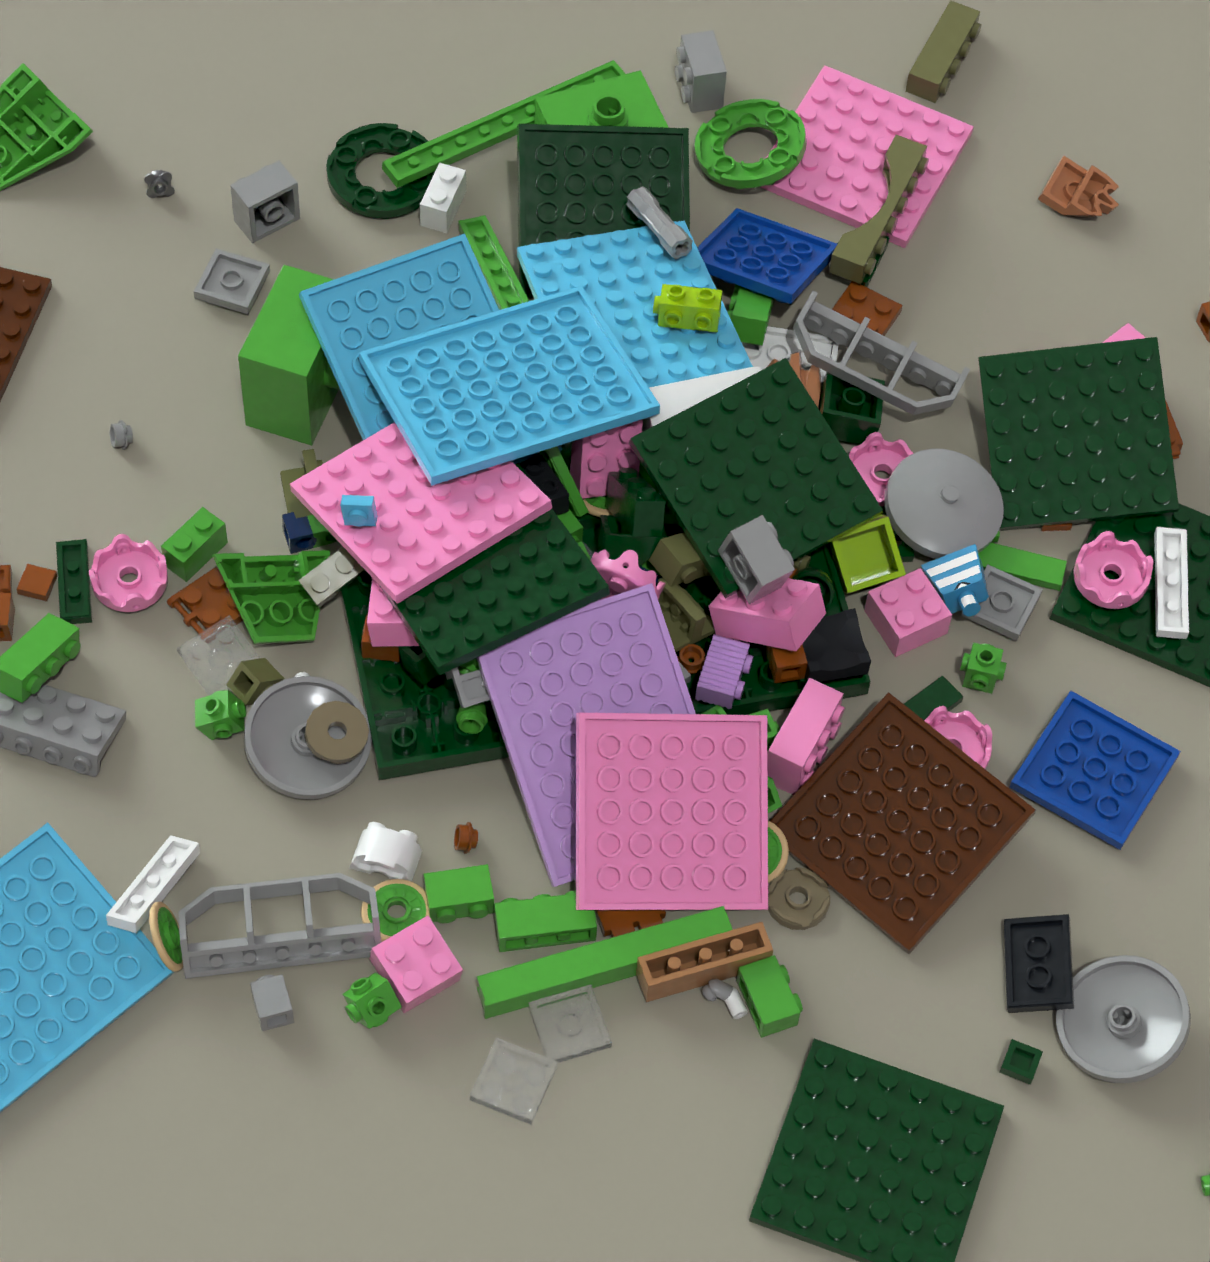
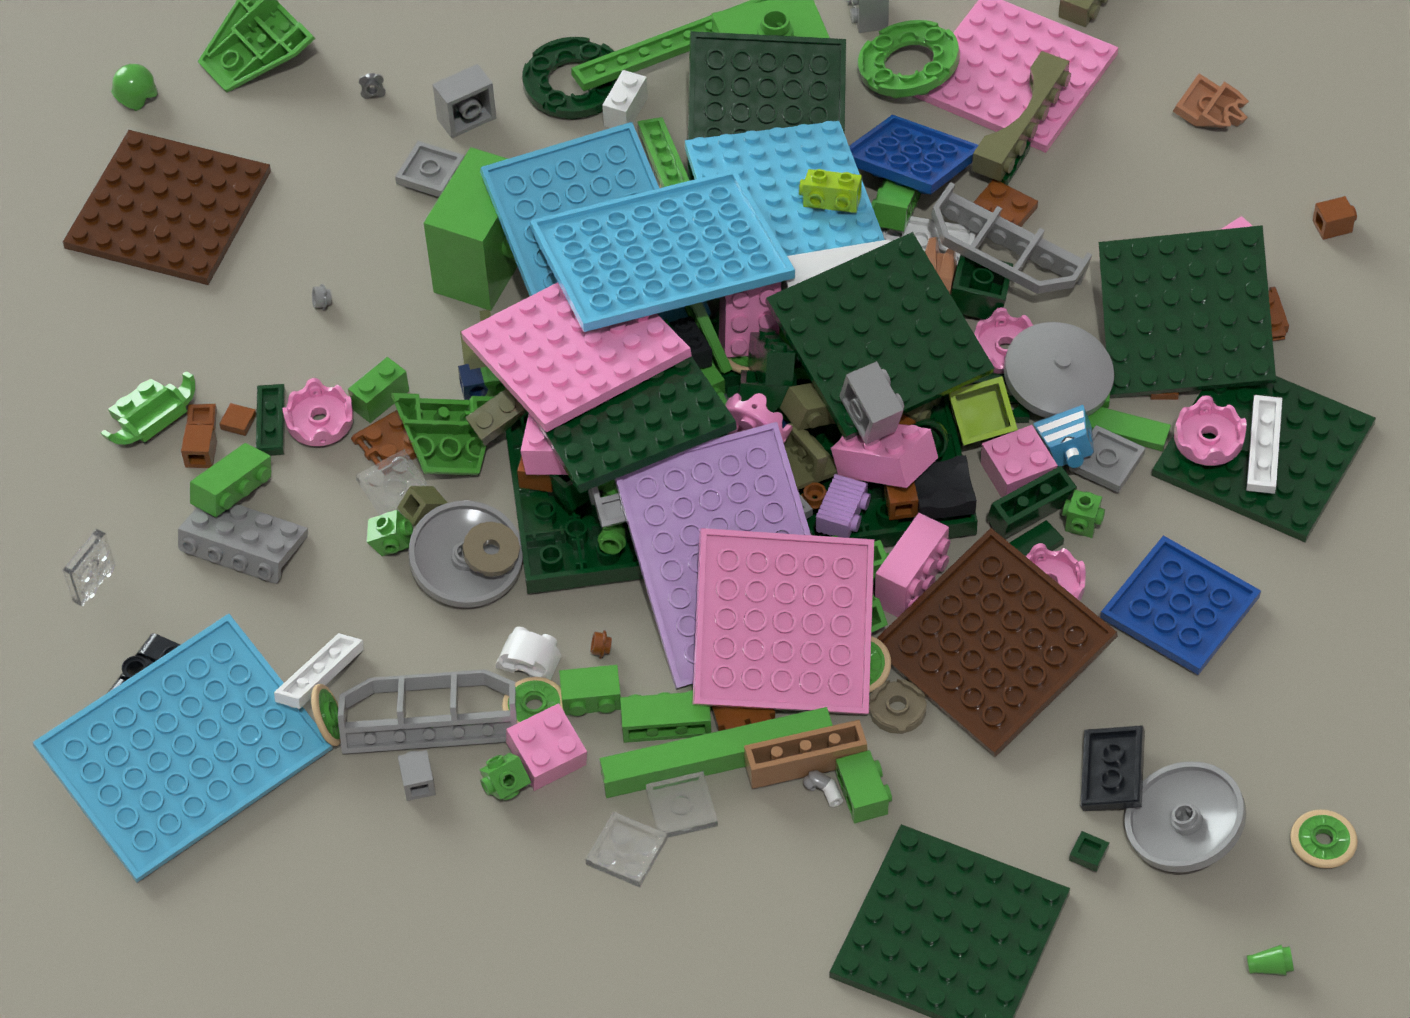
camera: 10 degrees right, 5 degrees down
(359, 510) = (517, 351): medium azure plate -> none
(670, 235) = (822, 130): light grey axle -> none
(926, 657) = (1031, 502): none -> dark green brick

